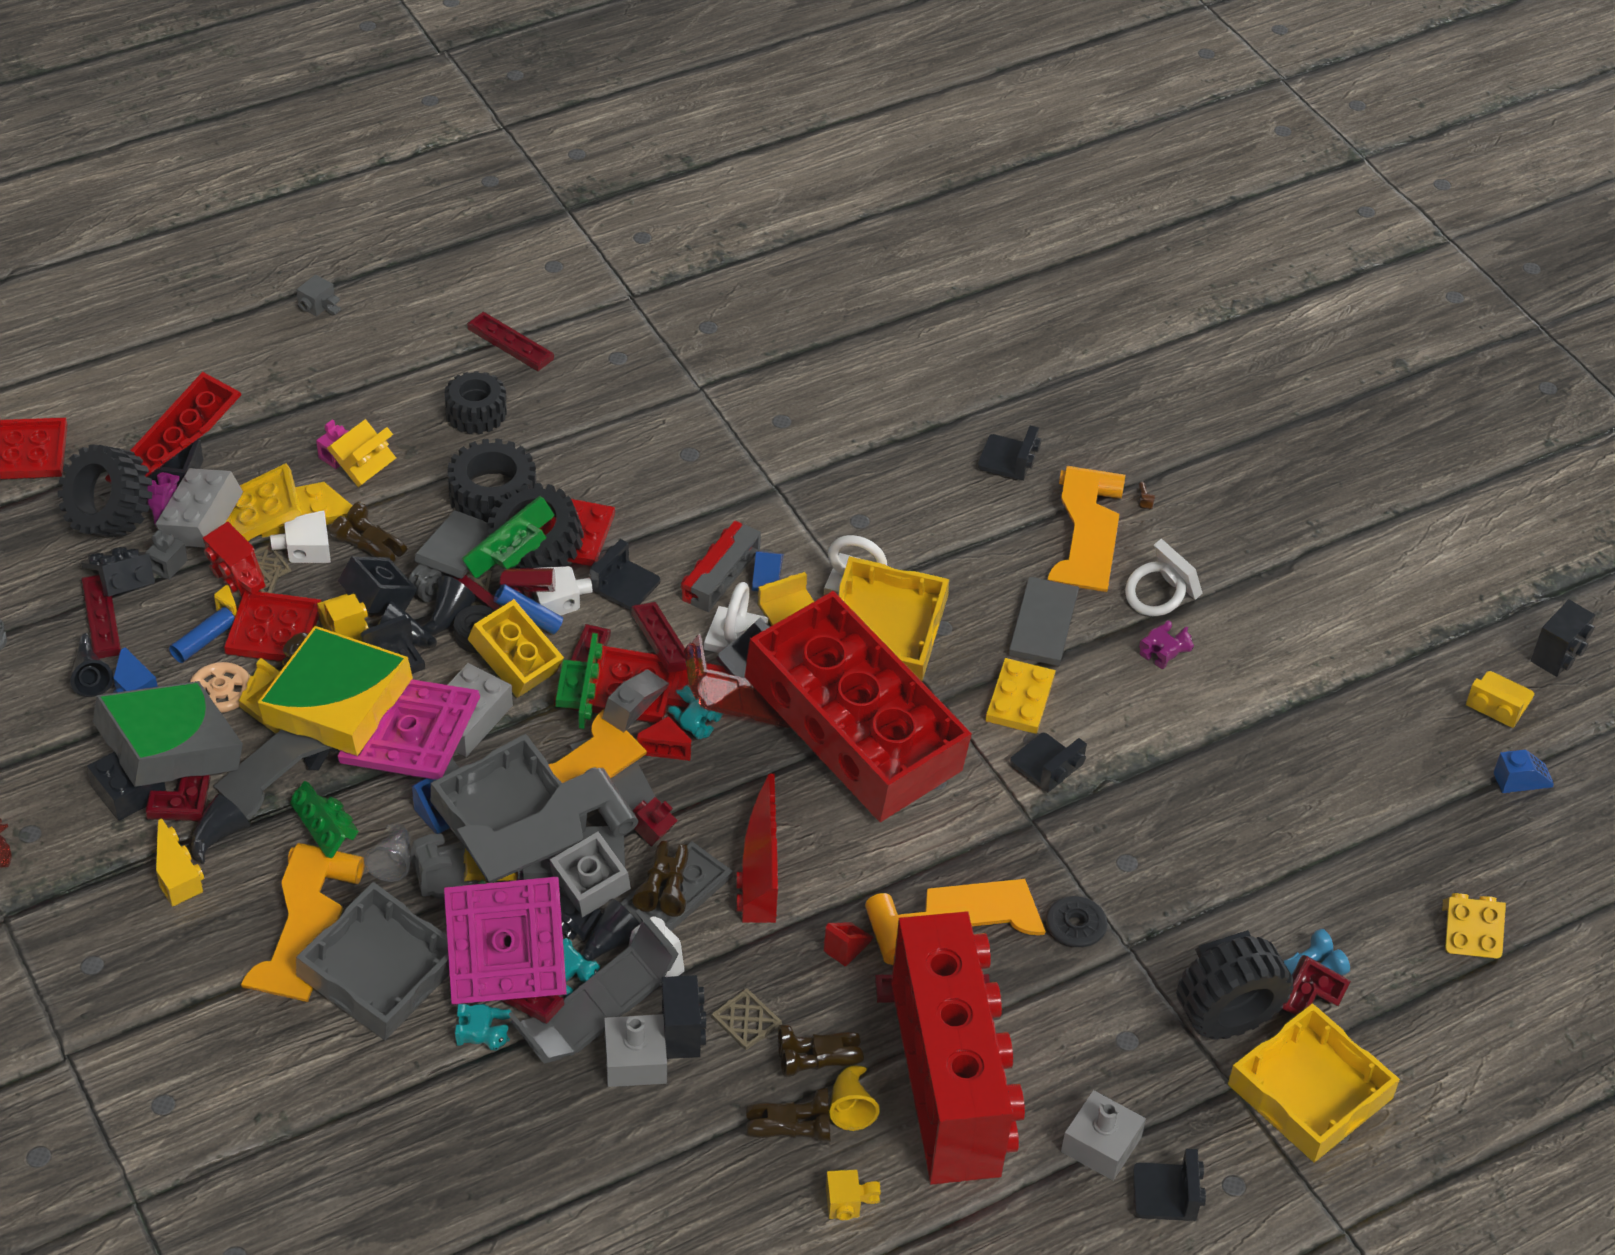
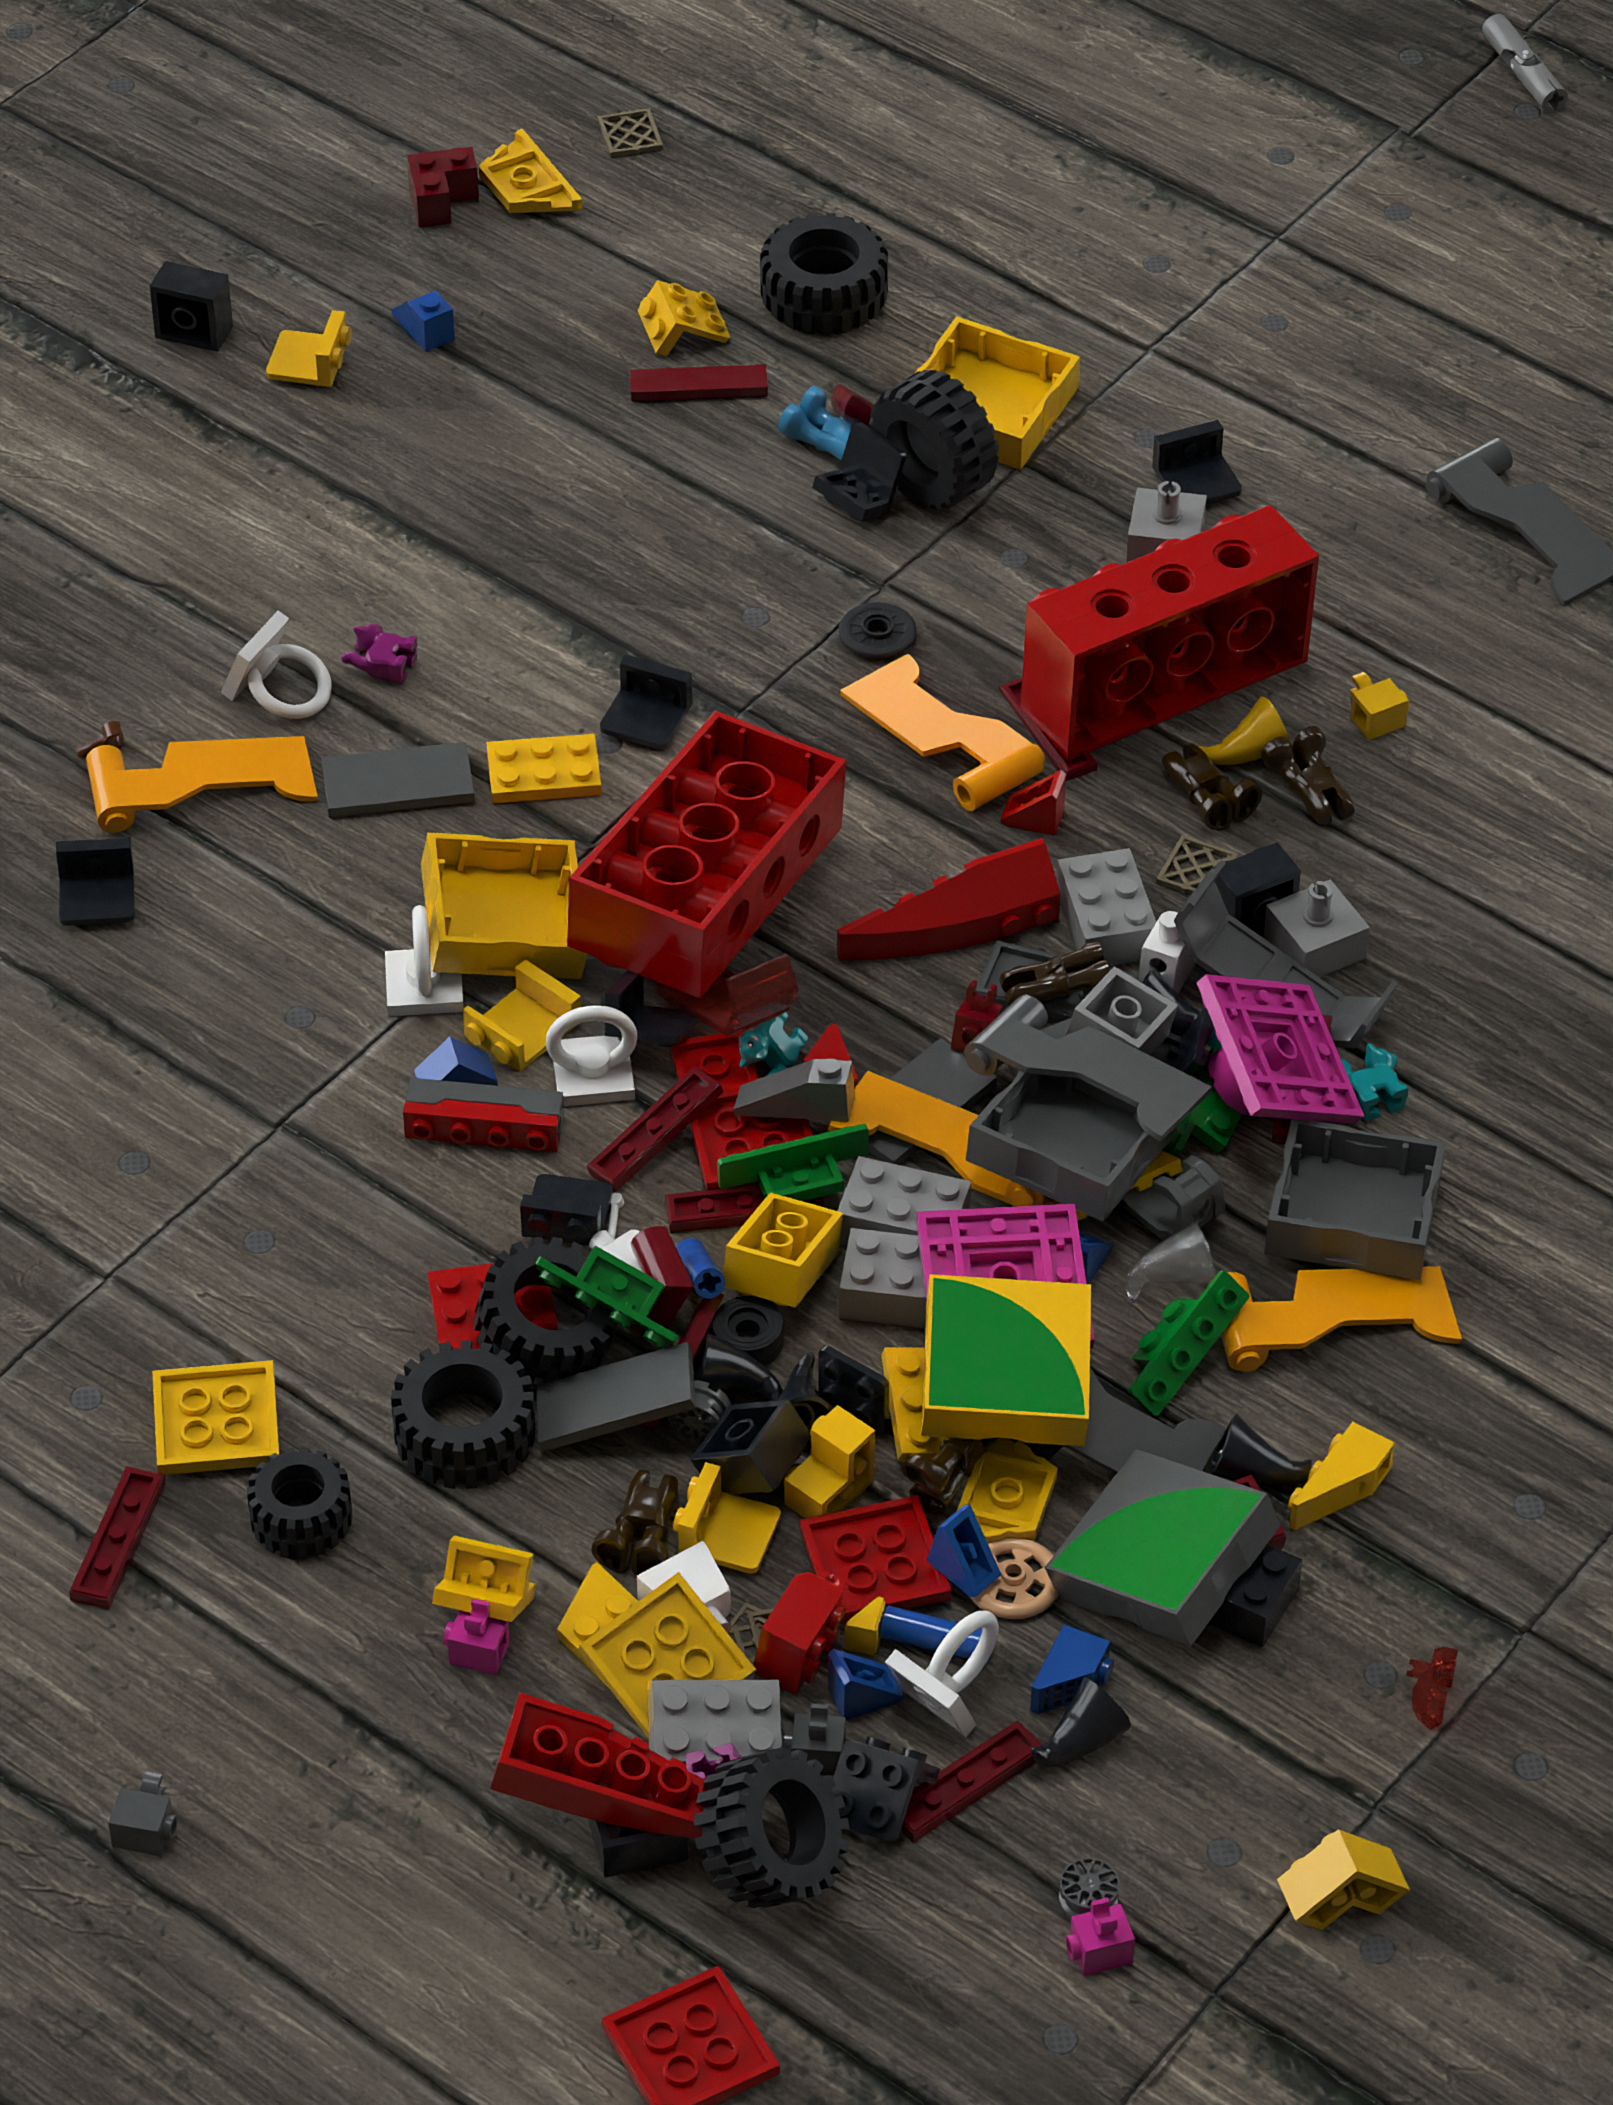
camera: 110 degrees left, 0 degrees up
(155, 605) = (934, 1686): none -> white tile
(192, 585) = (860, 1684): none -> blue slope
(235, 651) = (963, 1553): none -> blue slope
(326, 573) = (729, 1525): none -> yellow bracket
(523, 713) = (890, 1195): none -> light grey brick
(563, 394) = (215, 1417): none -> yellow plate
(622, 611) = (616, 1202): none -> white hinge
(724, 936) = (1106, 903): none -> light grey brick
(1398, 913) = (698, 382): none -> dark red tile
(1482, 1048) = (824, 246): none -> black tyre

